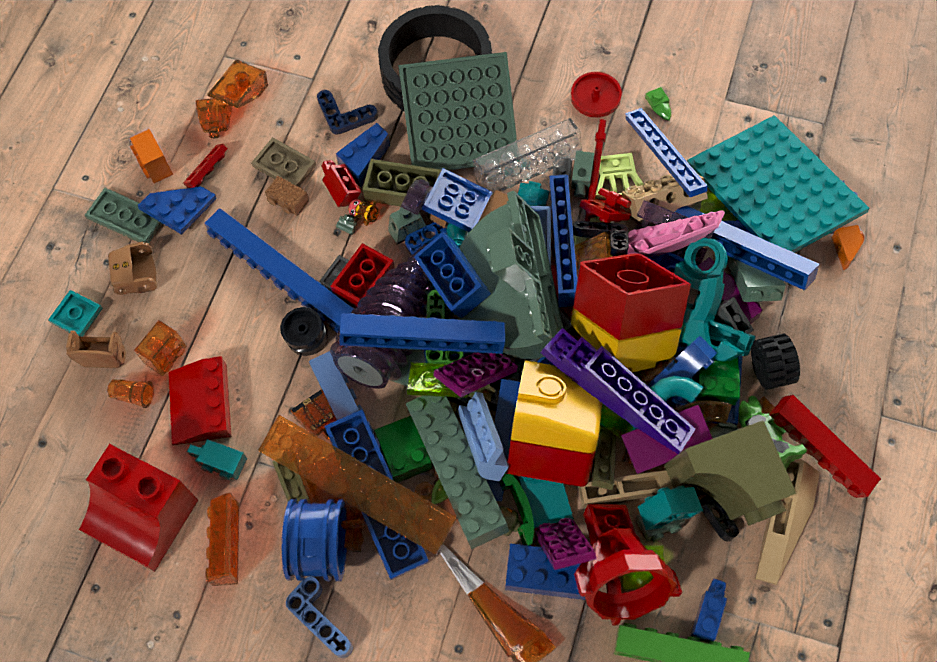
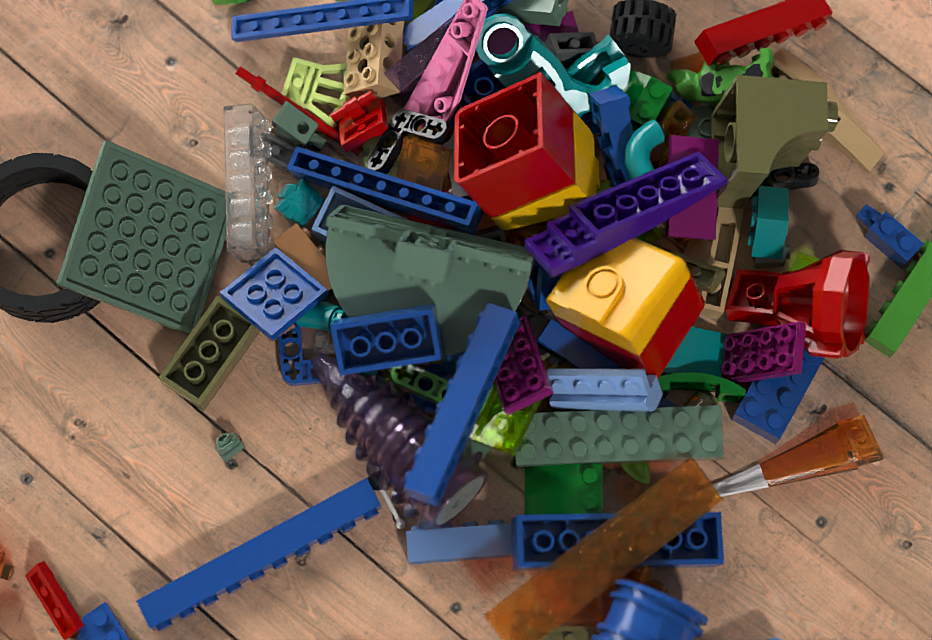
camera: 70 degrees left, 10 degrees up
(283, 161) = (99, 495): dark tan plate -> none
(286, 195) = (152, 508): medium nougat brick -> none
(304, 331) = (353, 541): black wheel -> none
(314, 414) = (480, 579): clear orange torso -> none
(333, 271) = (296, 485): dark grey plate -> none
(340, 183) = (169, 432): red hinge -> none
(343, 119) = (65, 392): dark blue beam -> none
(359, 152) = (136, 386): blue wedge -> none
(360, 274) = (321, 453): red brick -> none
(367, 212) = (219, 419): clear orange animal -> none
(403, 223) = (267, 372): sand green torso -> none
(416, 196) = (254, 339): clear purple hinge -> none
(596, 94) = (182, 61): red piece -> none

